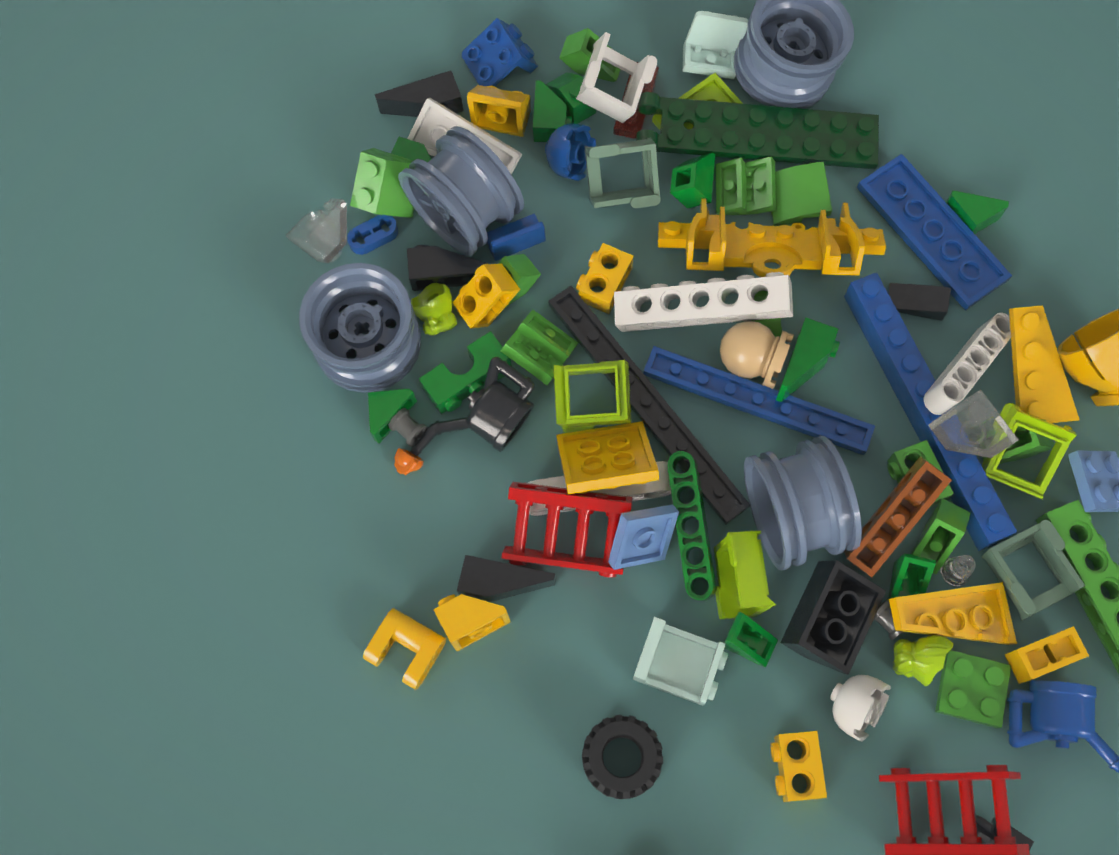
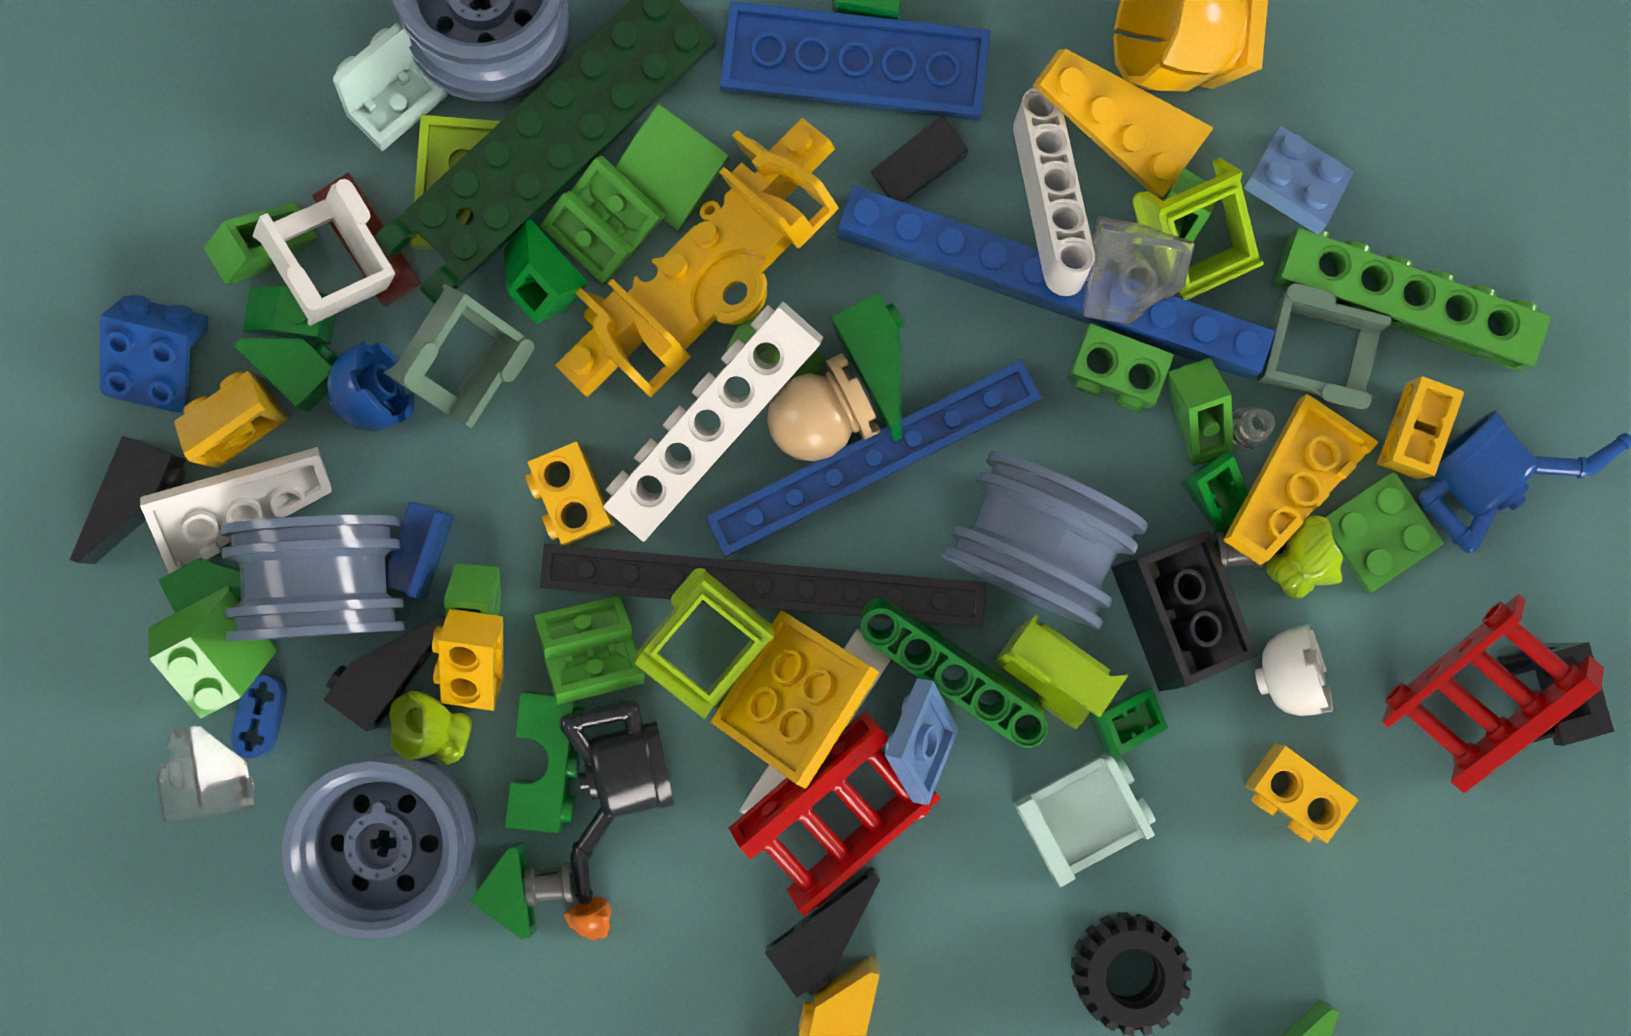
camera: 50 degrees left, 15 degrees up
(898, 515) = (1147, 441): dark orange brick -> none

